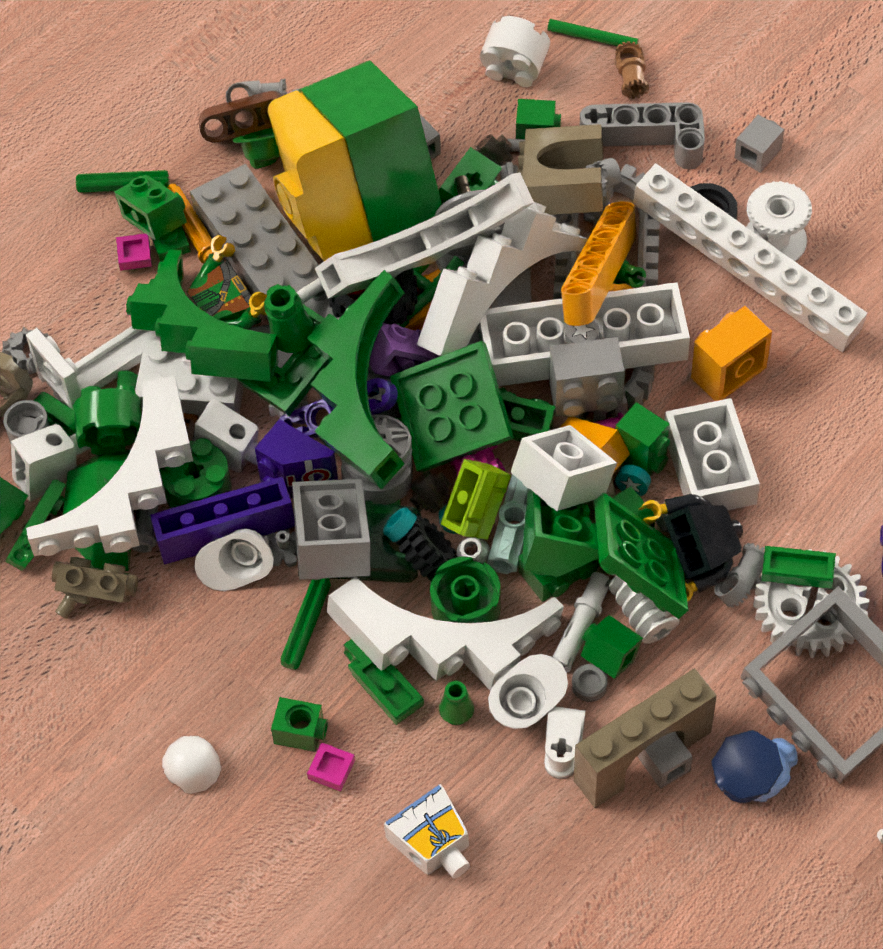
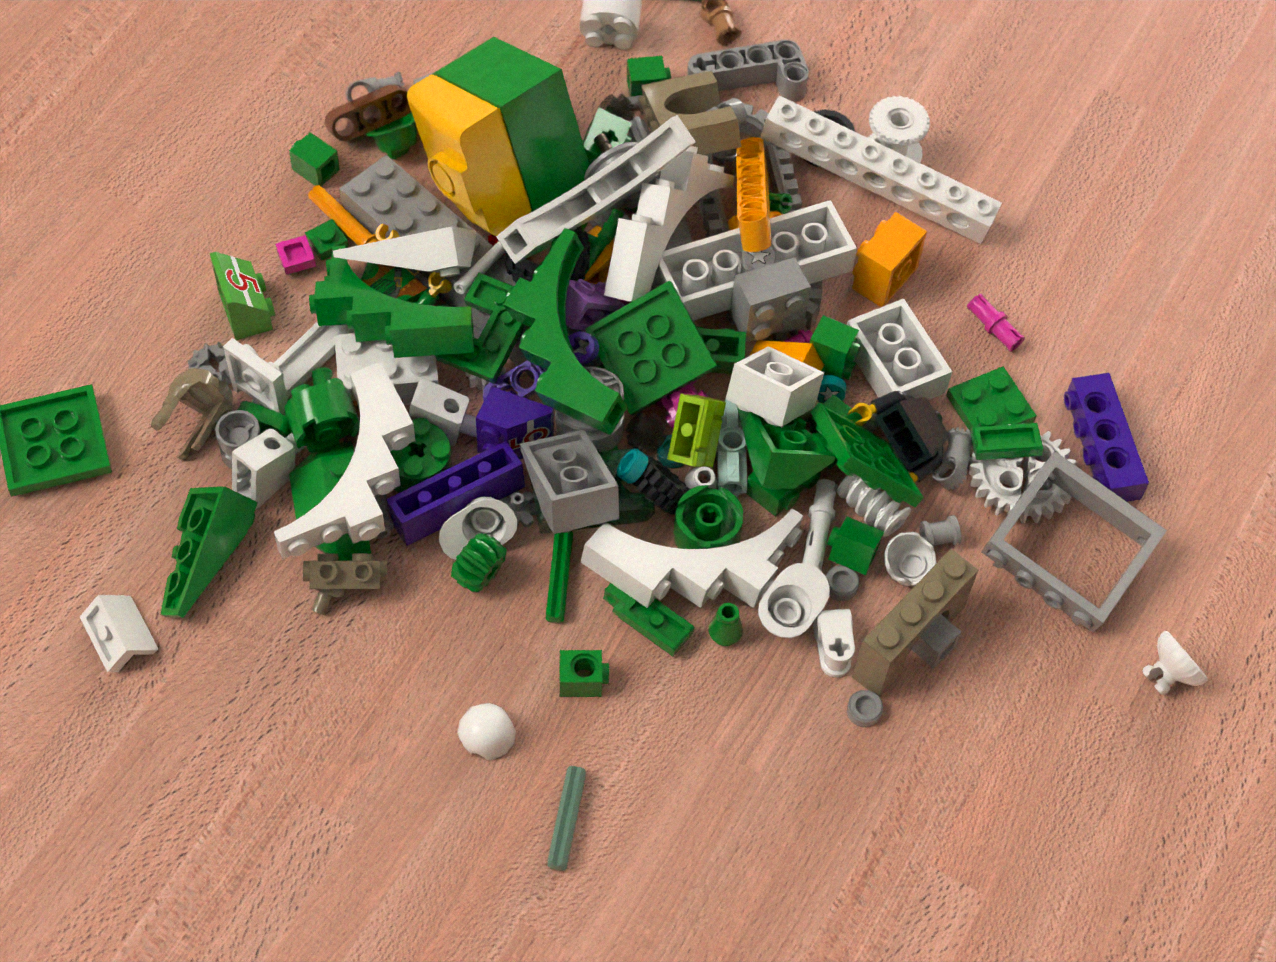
camera: 20 degrees left, 0 degrees up
(51, 501) = (277, 508): green hinge -> none
(68, 284) = (242, 295): none -> bright green slope
(115, 180) = (265, 190): green axle -> none
(151, 206) = (303, 209): green brick -> none
(177, 156) = (314, 159): none -> green brick
(226, 594) = (478, 562): none -> green gear
(243, 270) = (432, 251): none -> white wedge
(245, 865) = (566, 818): none -> sand green axle
(288, 319) = (479, 289): green plant -> none
(331, 766) = (623, 707): dark pink plate -> none
(430, 834) = (737, 752): torso -> none
(576, 815) = (864, 708): none -> light grey tile
(660, 666) = (909, 558): none -> white hair
(705, 649) = (941, 532): none -> light grey bush
(753, 766) = (1016, 631): dark blue piece -> none
(759, 143) = (855, 68): light grey brick -> none
(801, 521) = (990, 401): none -> green plate
(830, 439) = (995, 322): none -> dark pink pin

